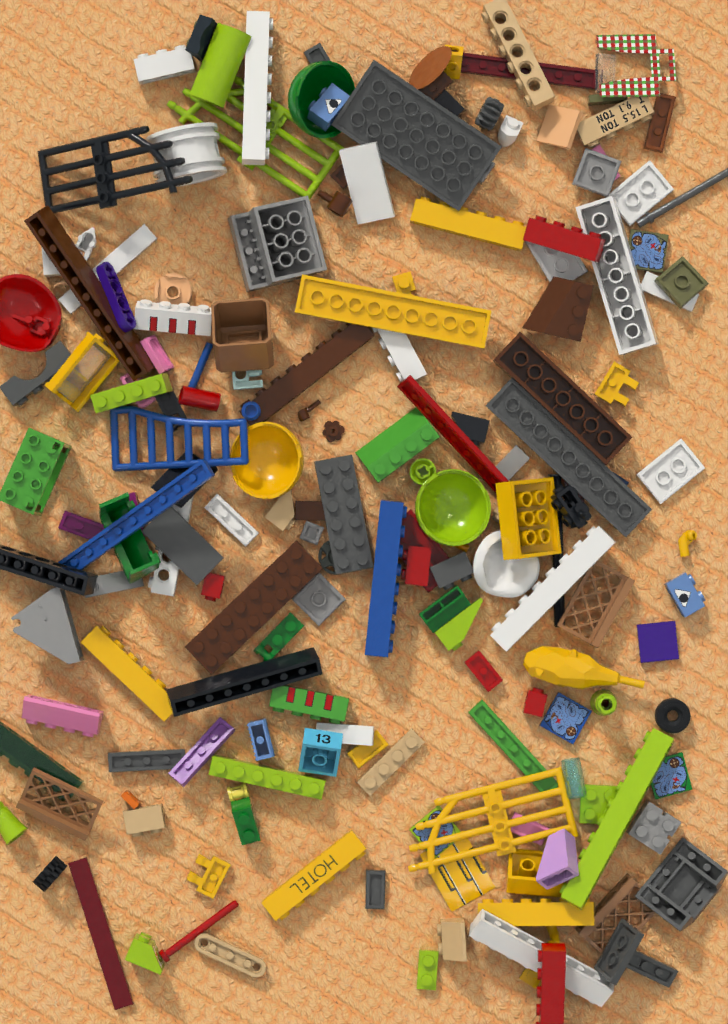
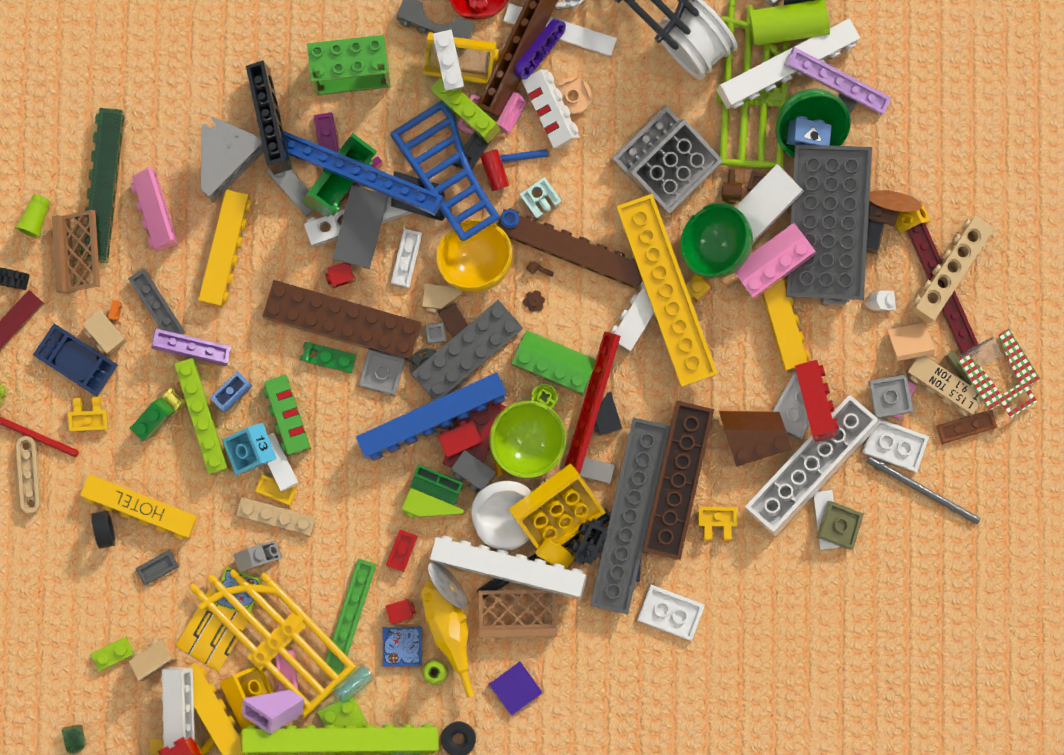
camera: 55 degrees right, 5 degrees down
(82, 383) = (448, 60): none -> white brick
(154, 858) = (75, 360): none -> dark blue slope
(242, 335) = (570, 172): medium nougat plate -> none
(244, 681) = (272, 347): black brick -> none
(296, 54) = (837, 81): none -> lavender tile
(316, 917) = (103, 529): none -> black tyre
(376, 243) = (716, 241): none -> green piece
(416, 798) = (257, 556): none -> light grey slope
(421, 203) = (775, 260): none -> bright pink slope
(489, 113) = (885, 274): dark grey gear -> none
(530, 649) = (443, 580): none -> flat silver sticker
(563, 541) = (554, 553): none -> yellow tile
(648, 250) = (850, 481): tile -> none
(685, 540) = (618, 661): yellow arm -> none
(685, 594) = (570, 688): medium blue brick -> none

